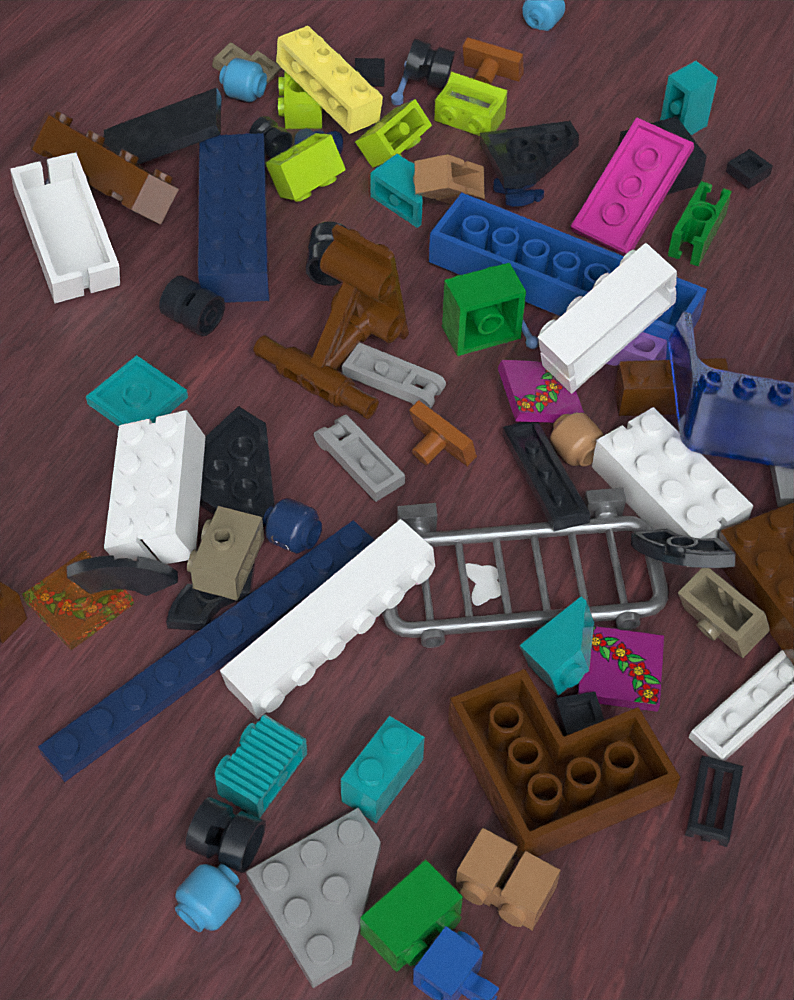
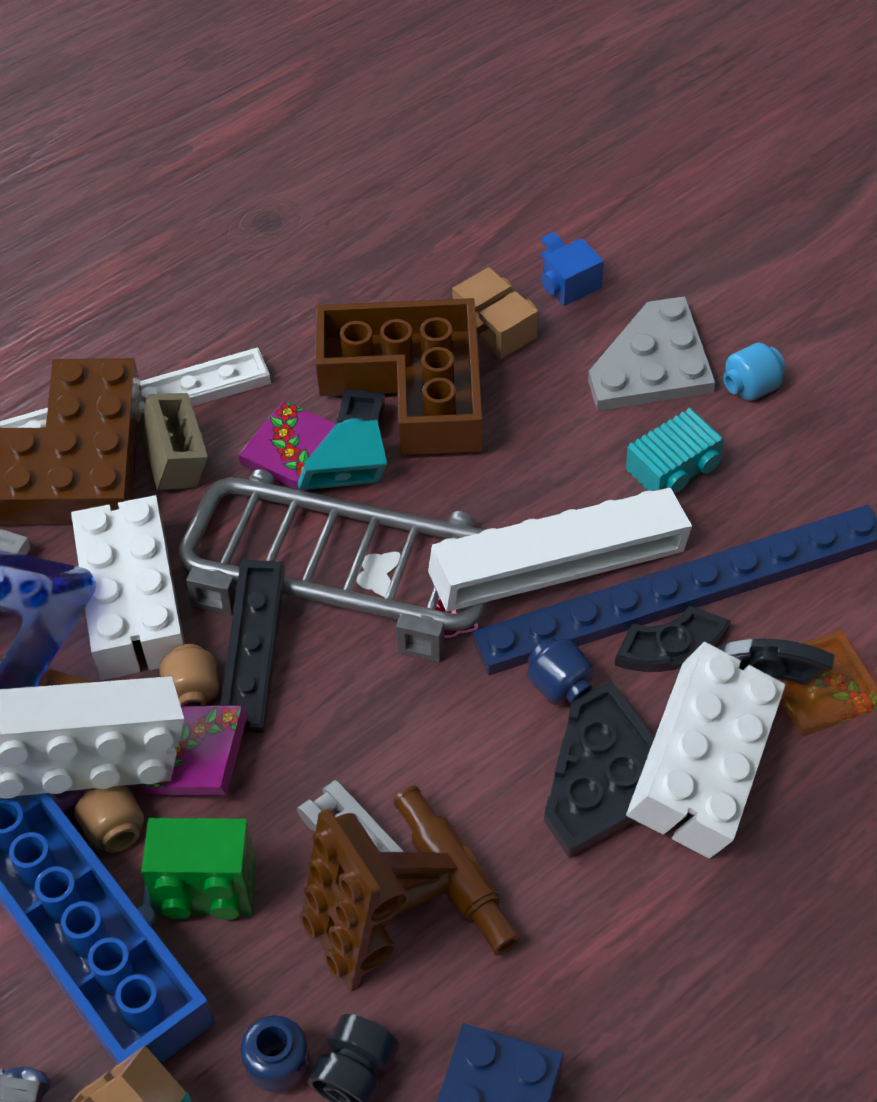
camera: 155 degrees left, 0 degrees up
(136, 394) = (694, 932): teal tile -> none
(192, 305) = (586, 1040): black wheel -> none
(226, 552) = (646, 648): dark tan brick -> none
(239, 839) = (723, 403): black wheel -> none
(360, 457) = (447, 742): light grey plate -> none
(382, 231) = (275, 1053): none -> dark blue head
(382, 769) = (564, 414): teal brick -> none
(411, 916) = (586, 311): green brick -> none
(439, 436) = (344, 732): dark orange tile -> none
(683, 550) = (178, 487): black tile -> none
(708, 831) = (290, 330): black tile -> none

